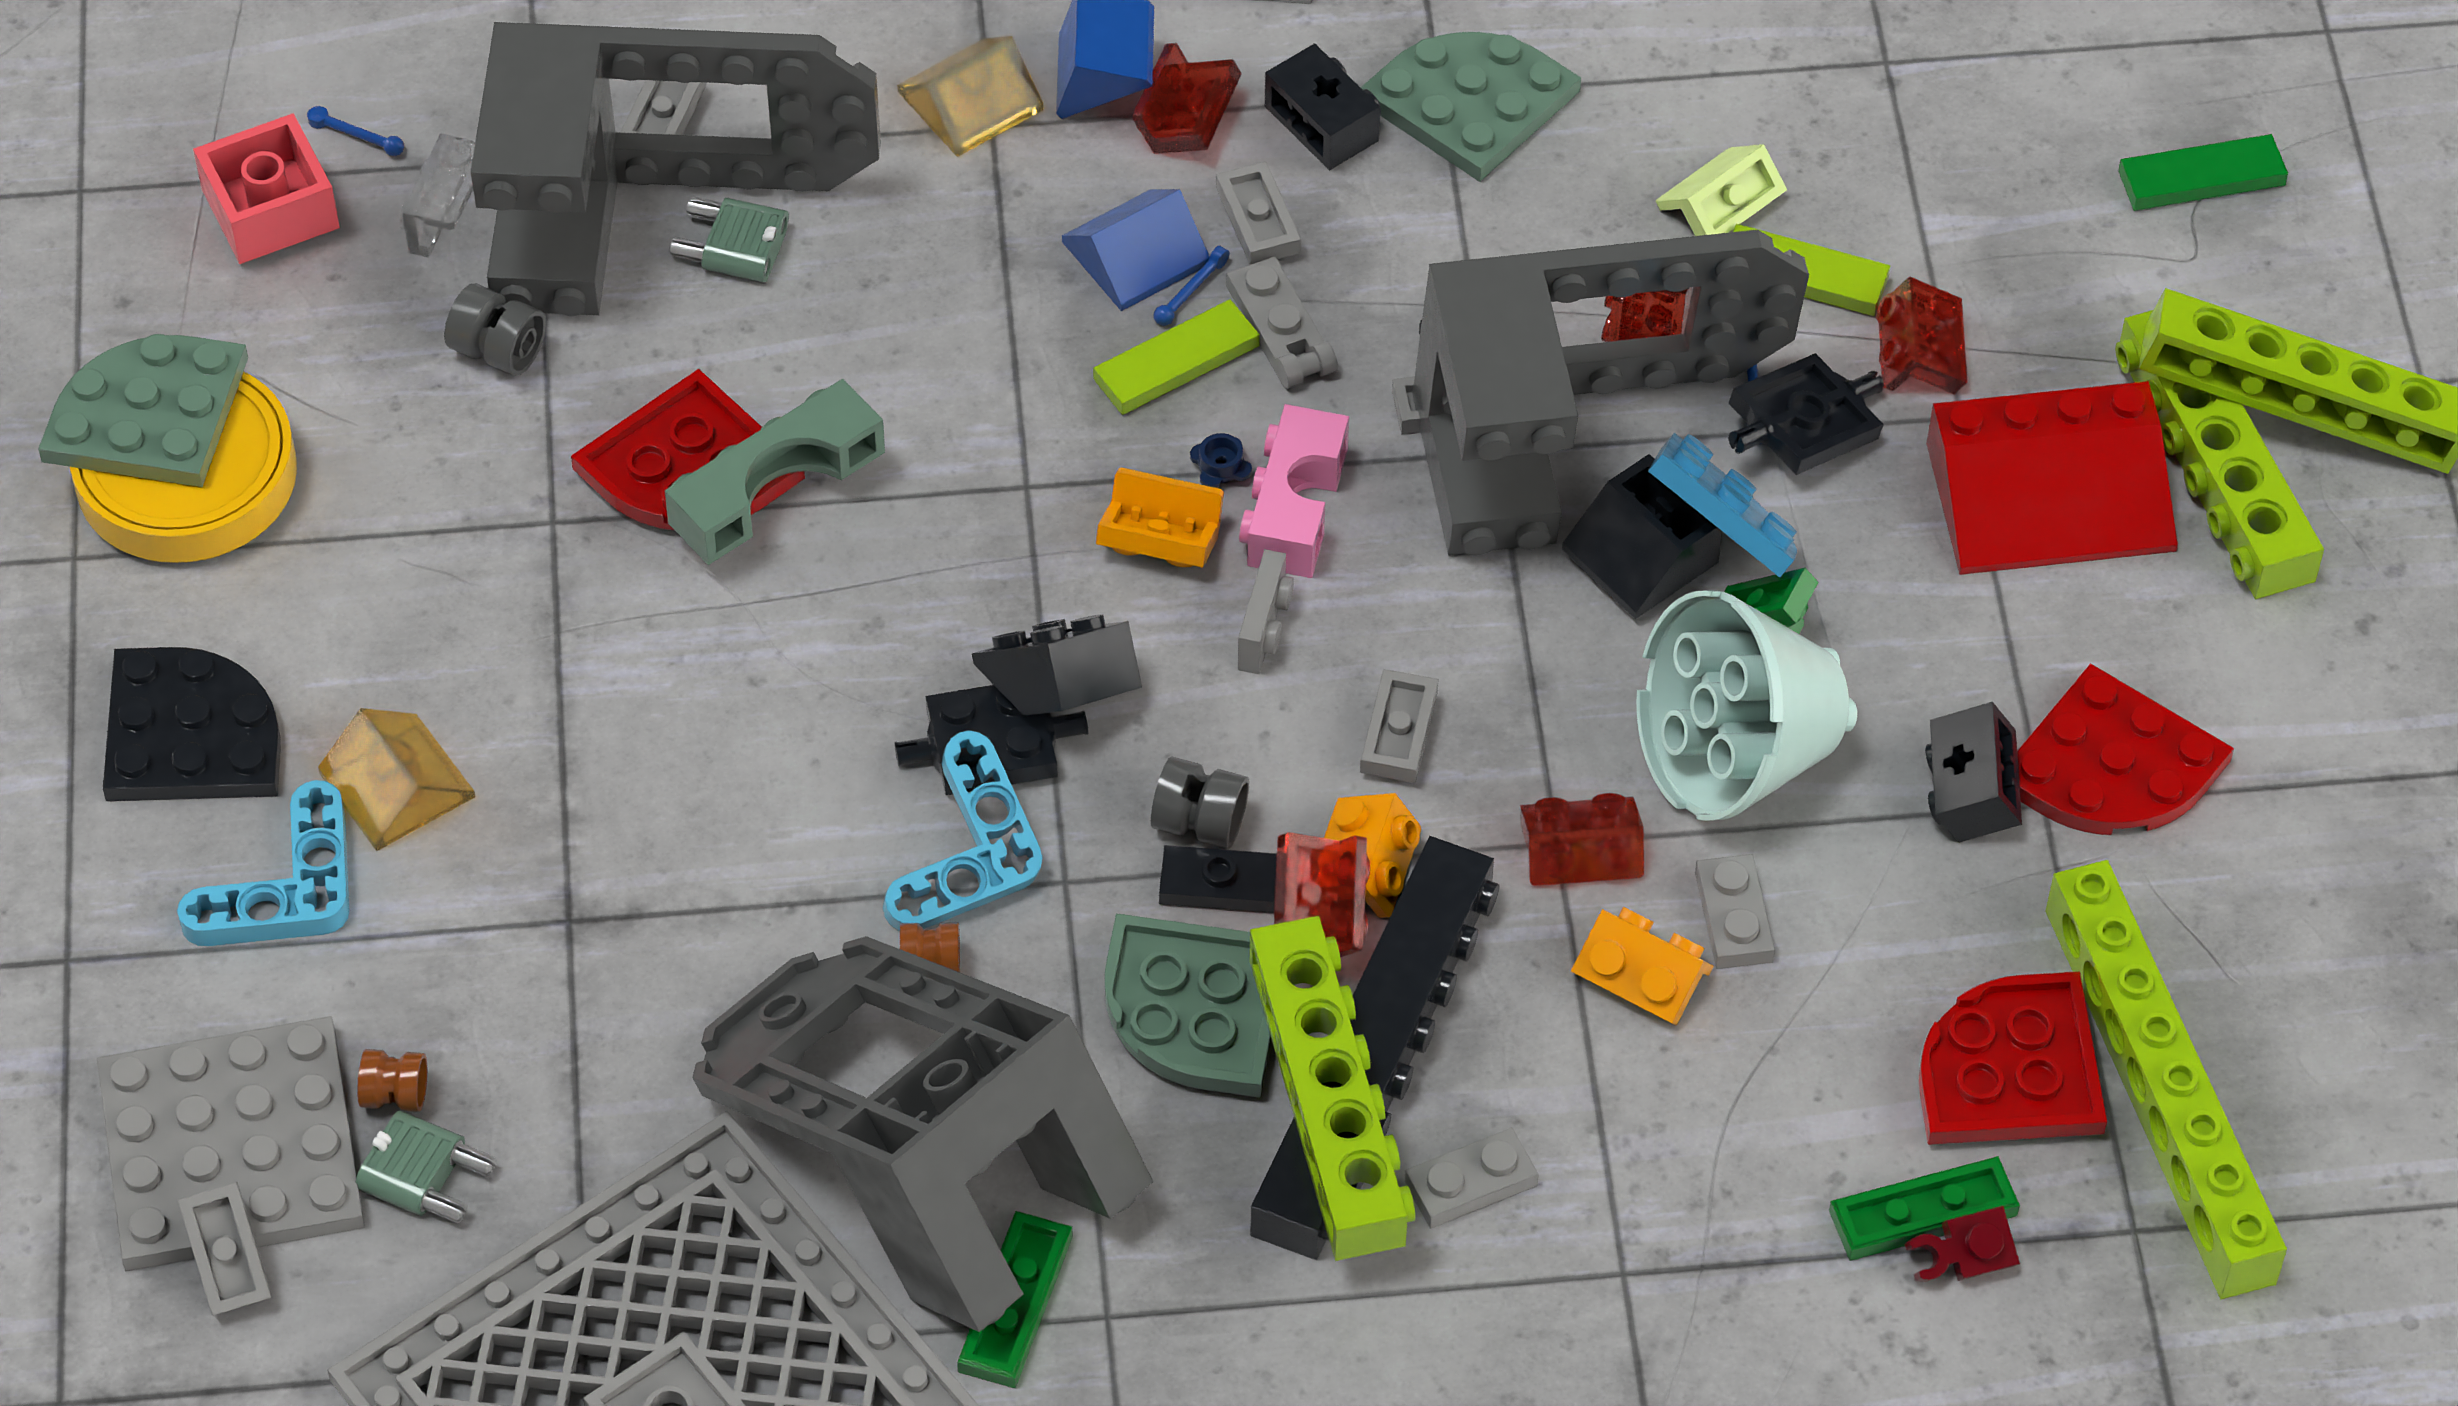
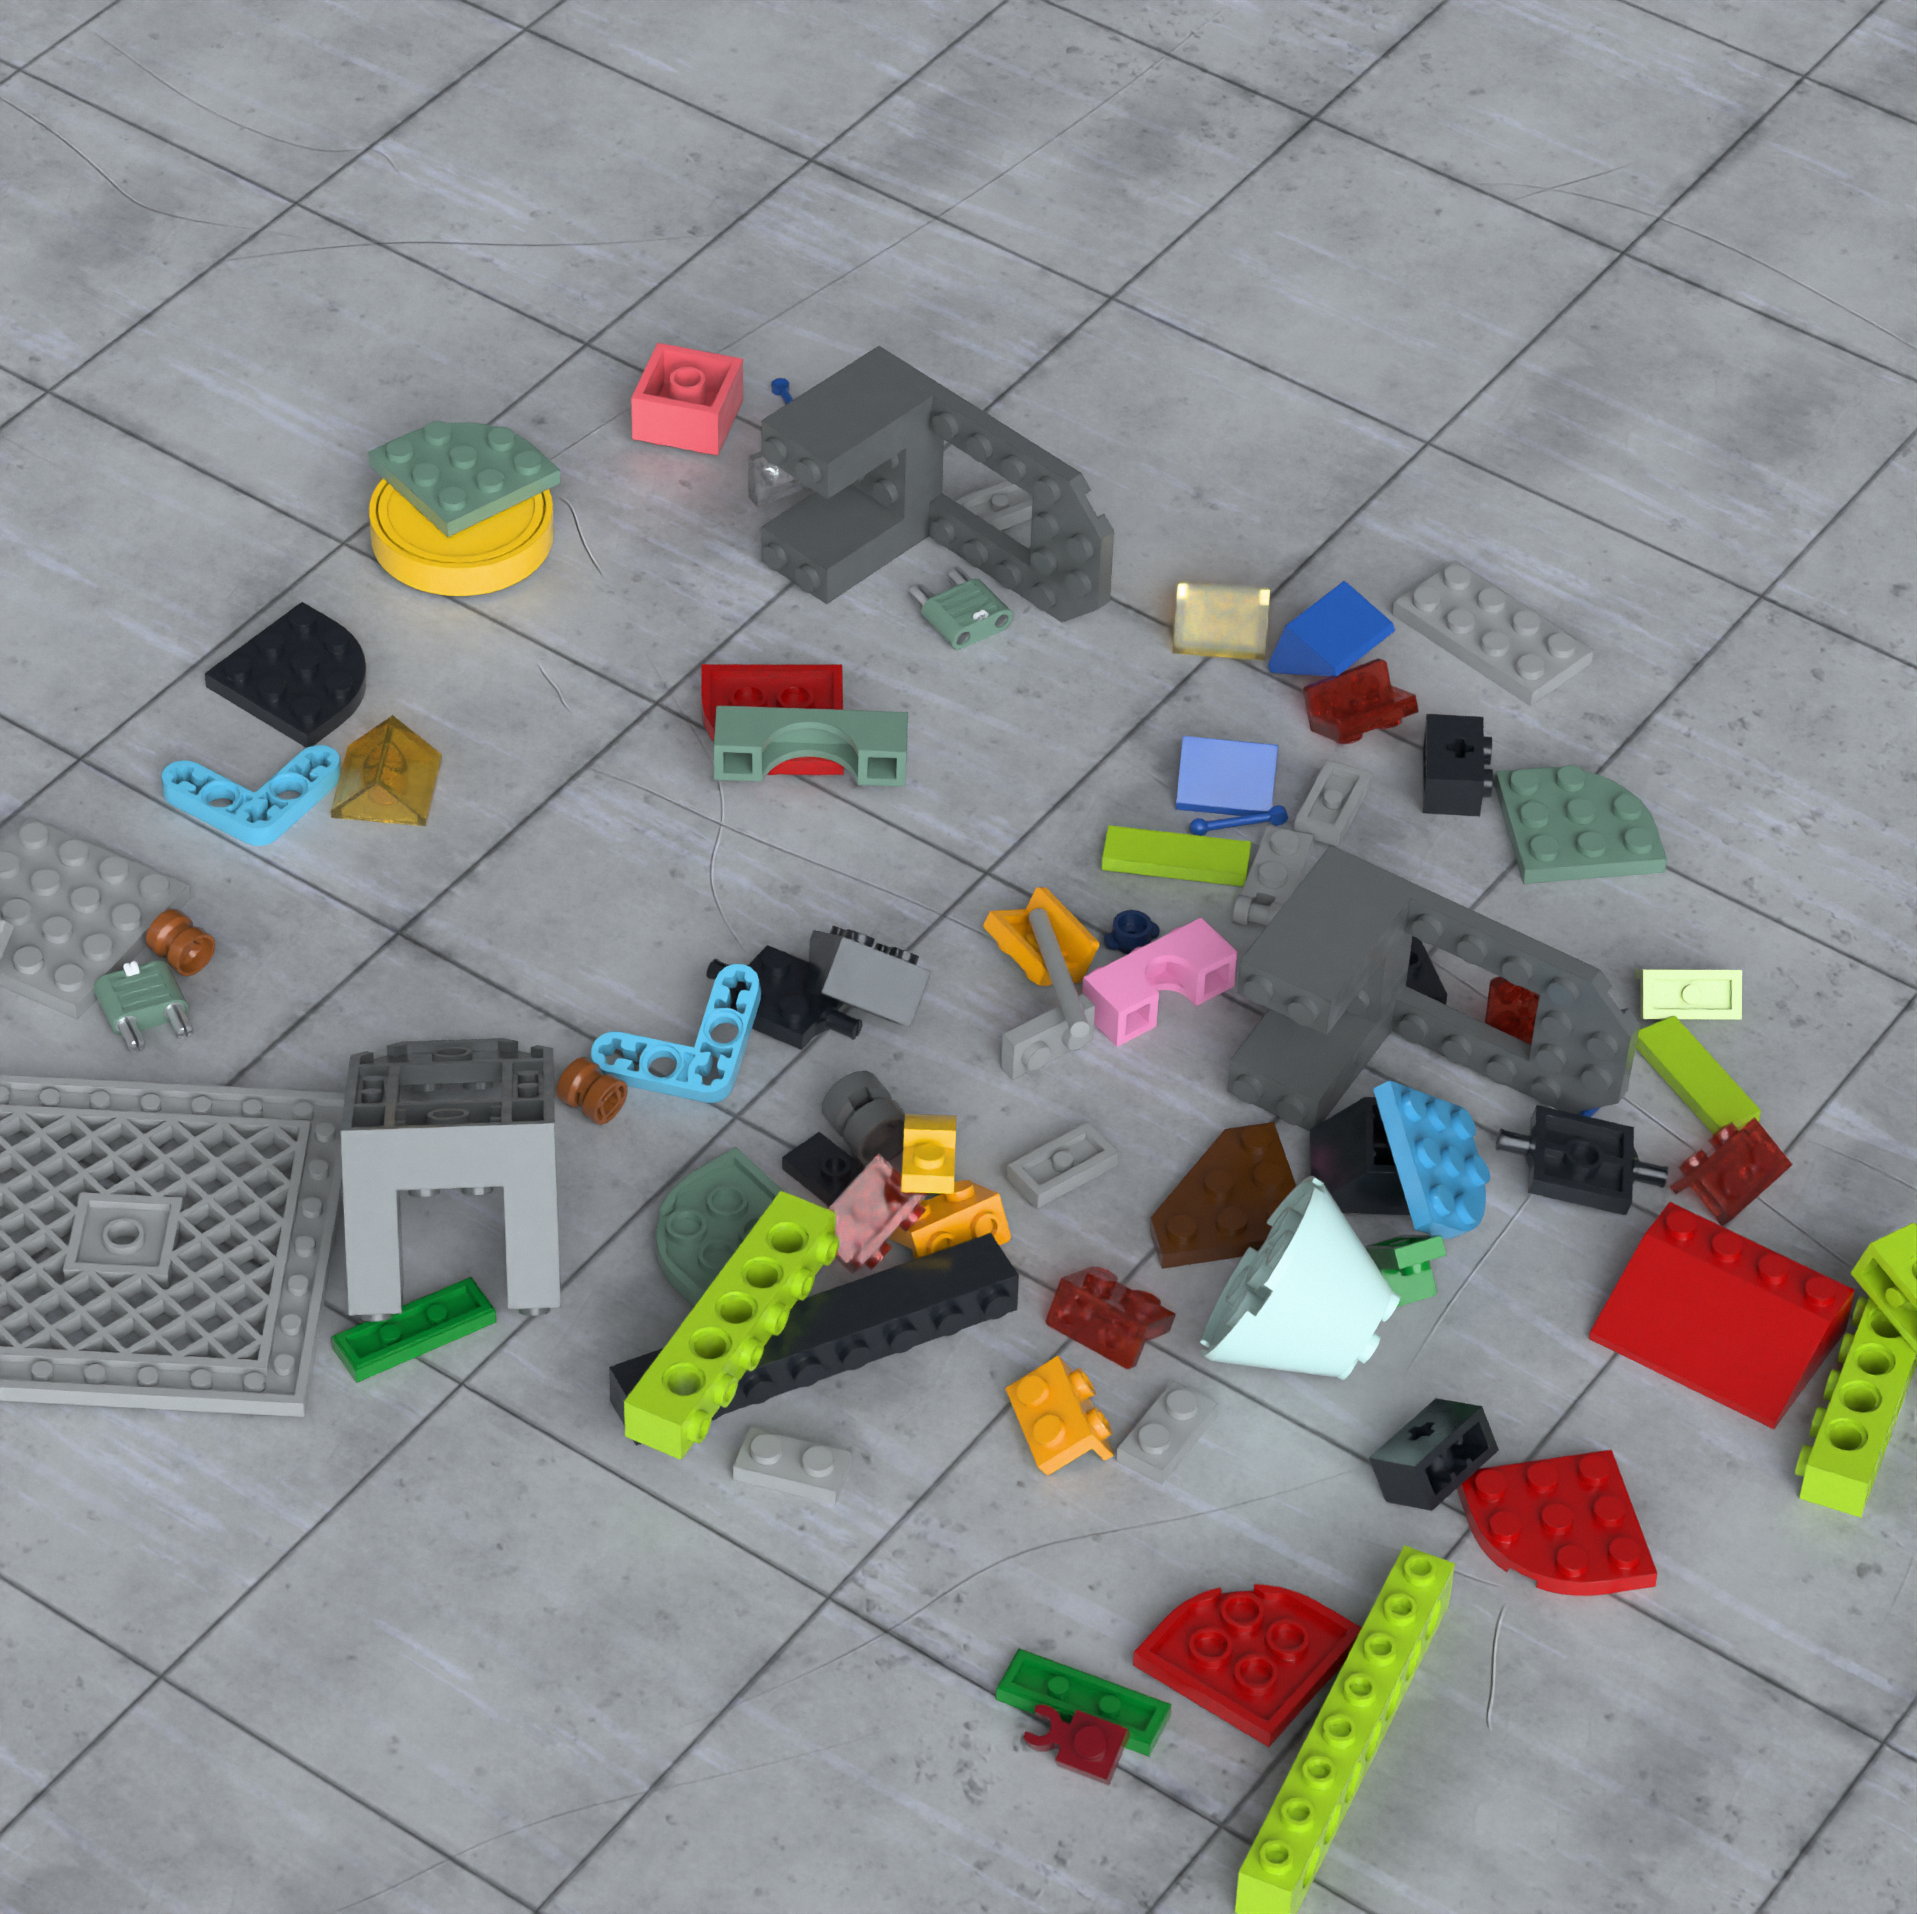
camera: 40 degrees right, 10 degrees down
(500, 331) = (738, 564): dark grey wheel -> none
(1225, 544) = (1059, 973): none -> light grey bar
(1318, 793) = (929, 1153): none -> yellow arch
(1564, 656) = (1224, 1199): none -> reddish brown plate

